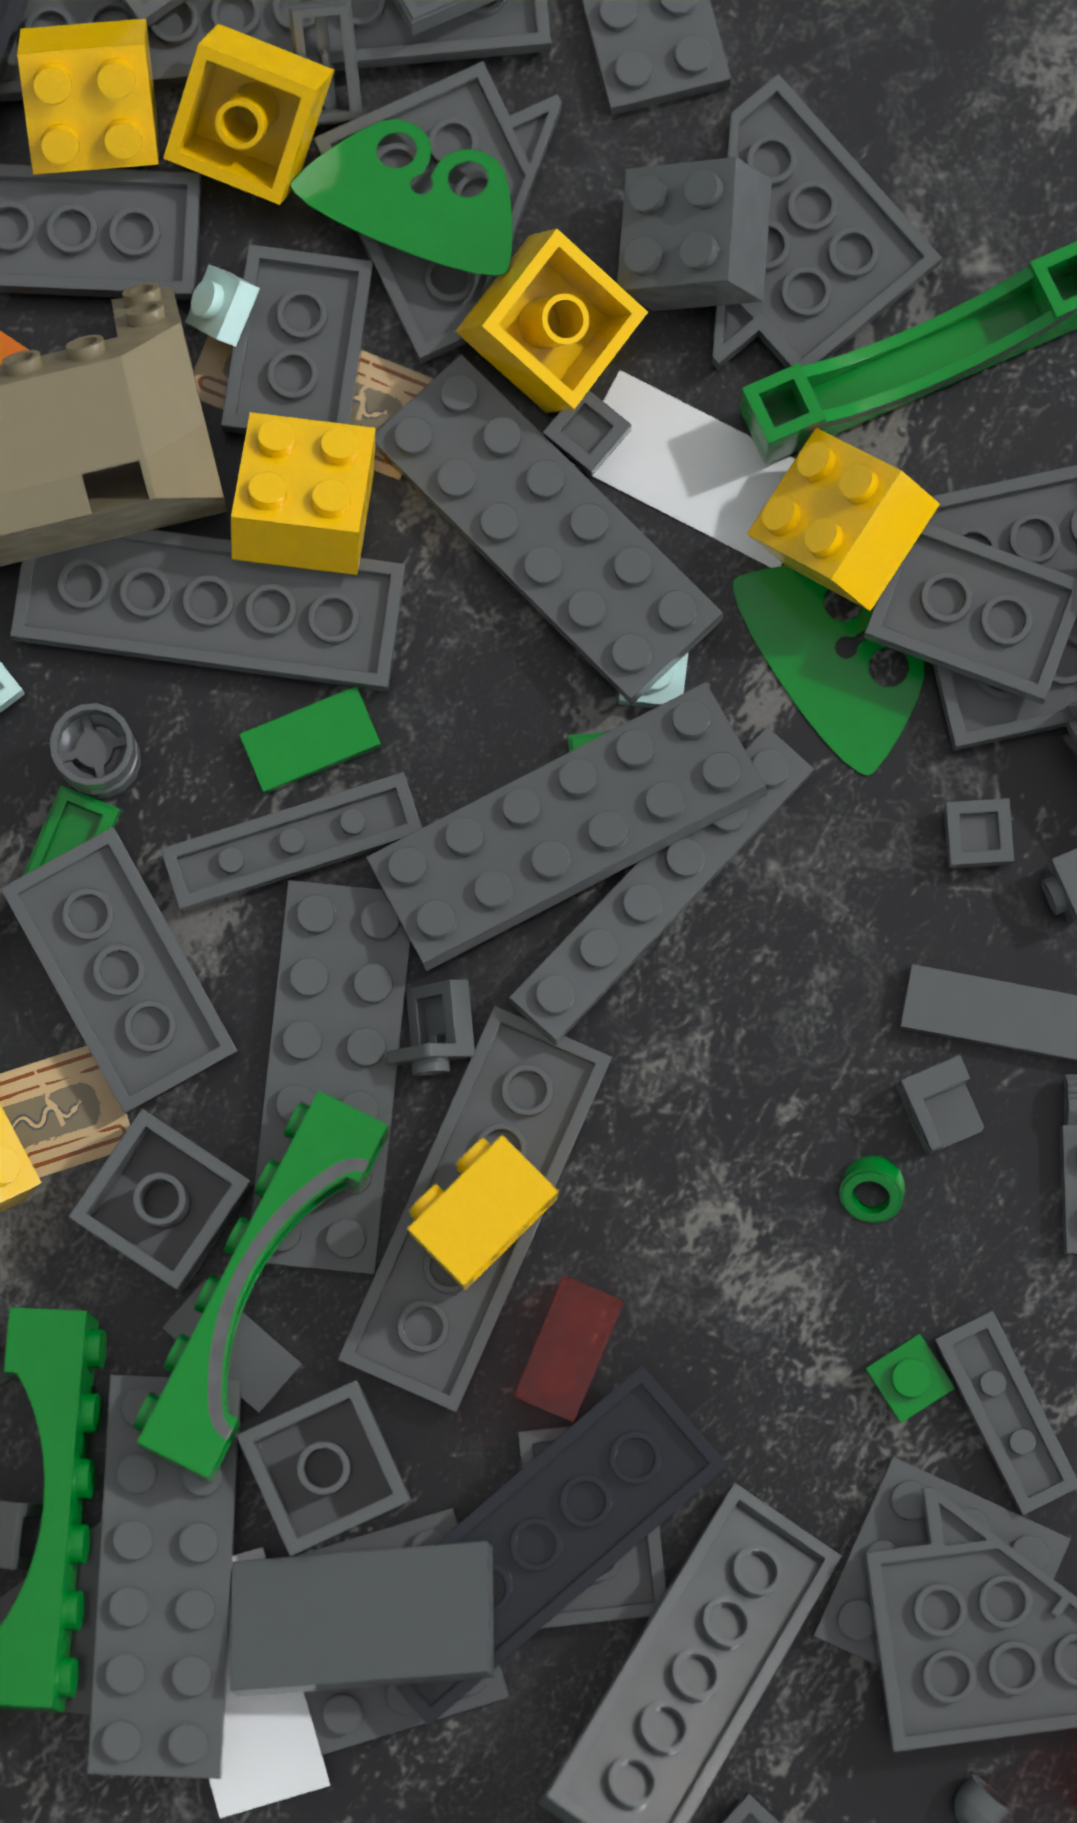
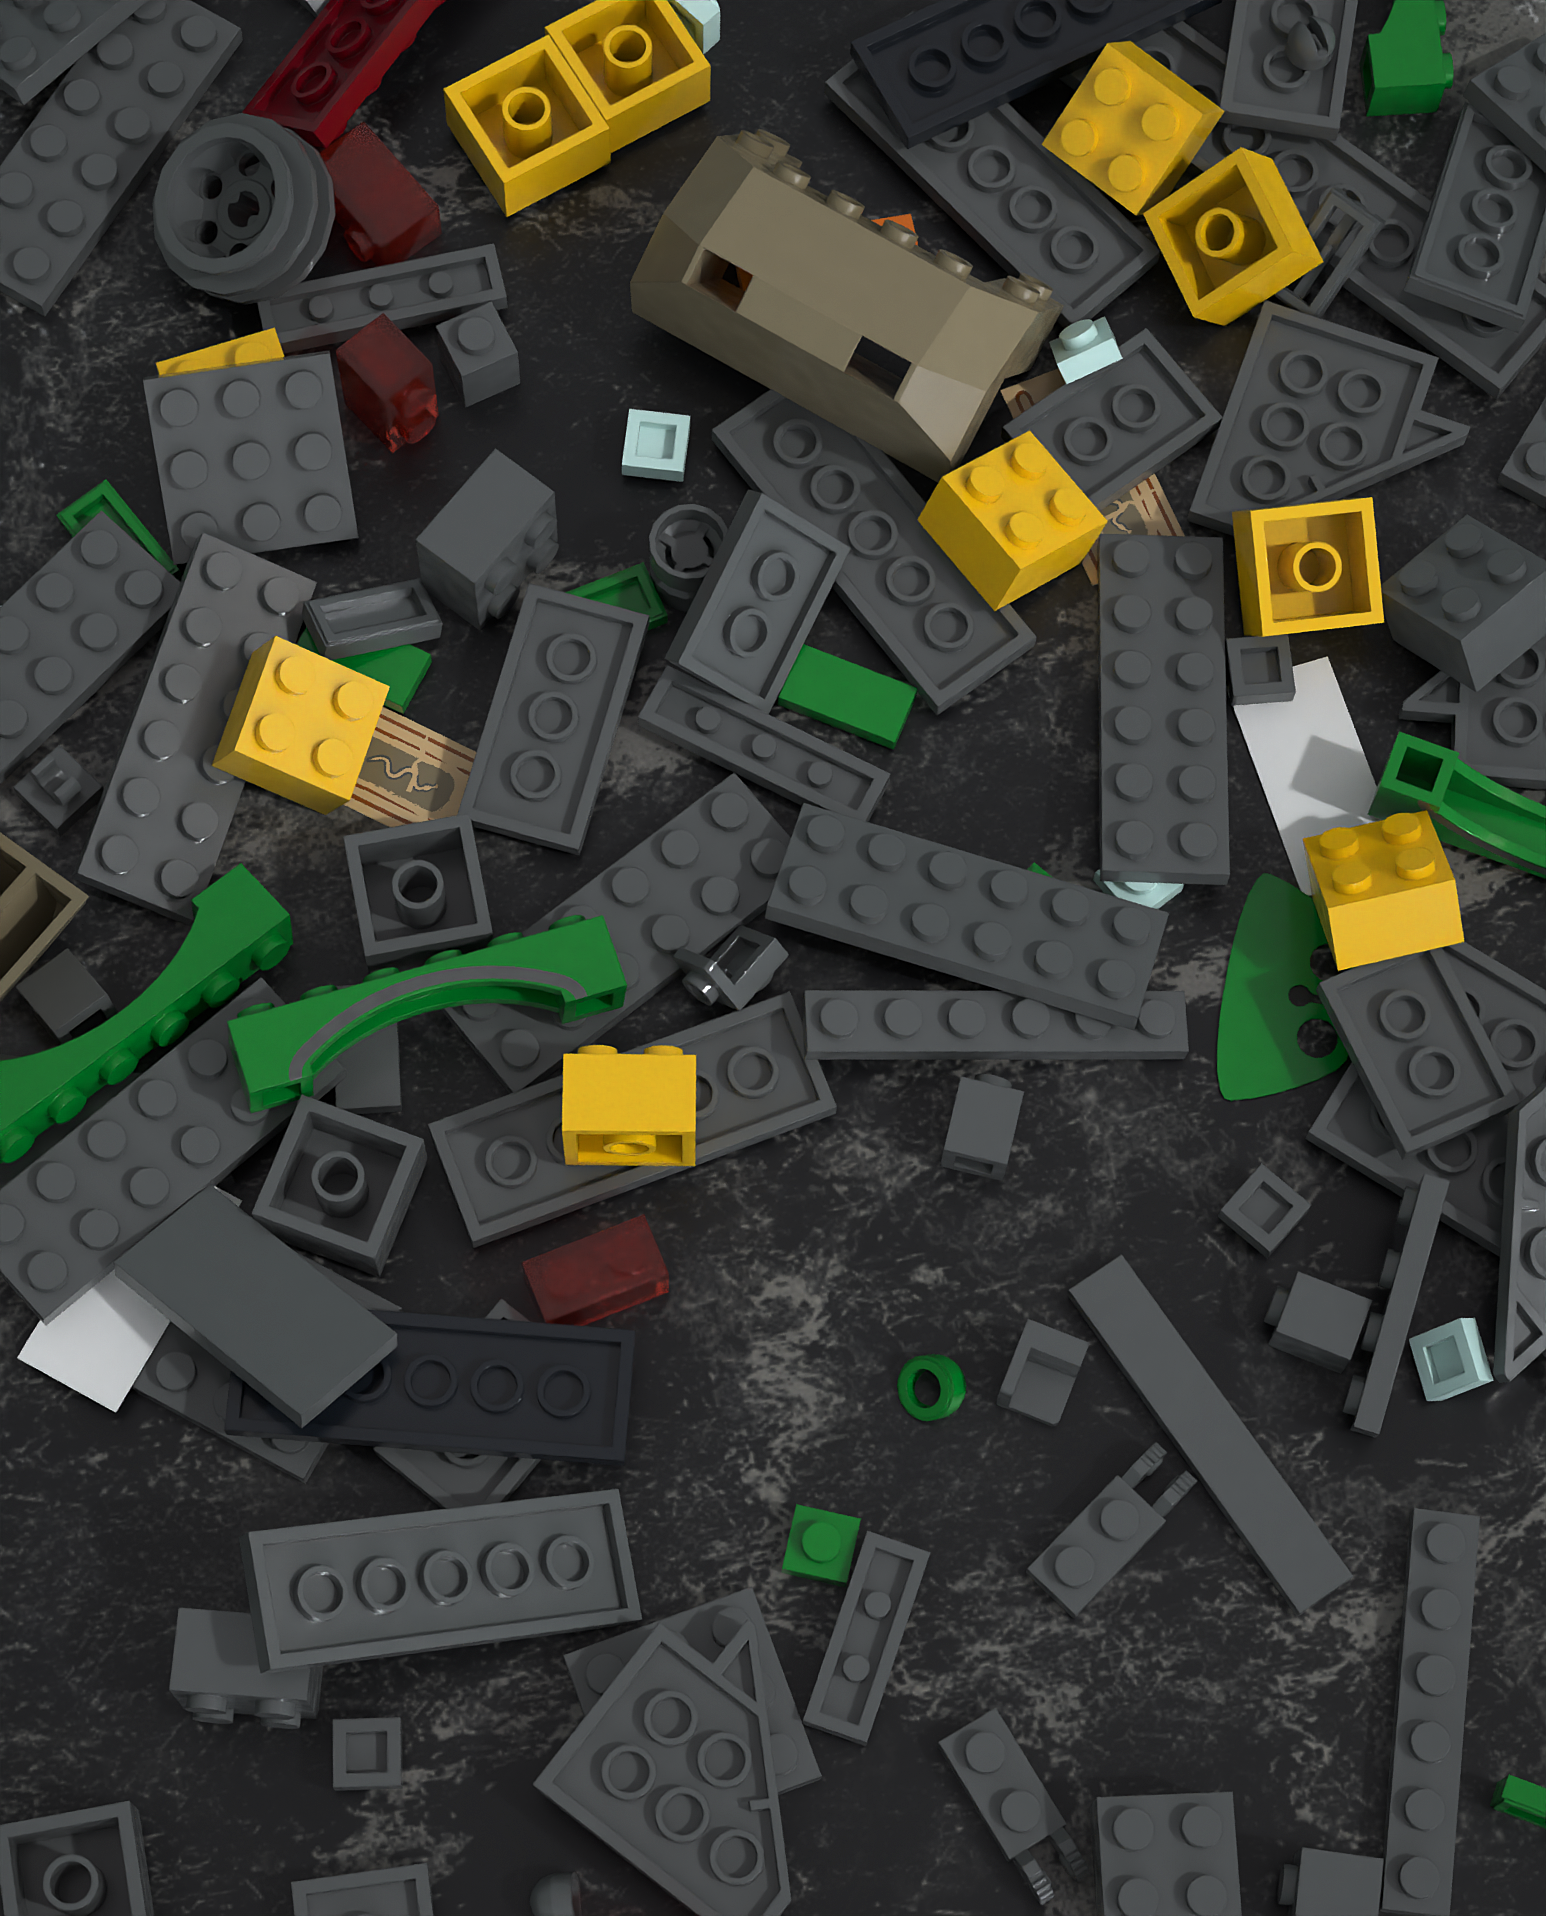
camera: 45 degrees right, 10 degrees down
(185, 740) = (757, 602): none -> dark grey plate
(379, 202) = (1266, 381): green piece -> none
(726, 967) = (982, 1126): none -> dark grey brick

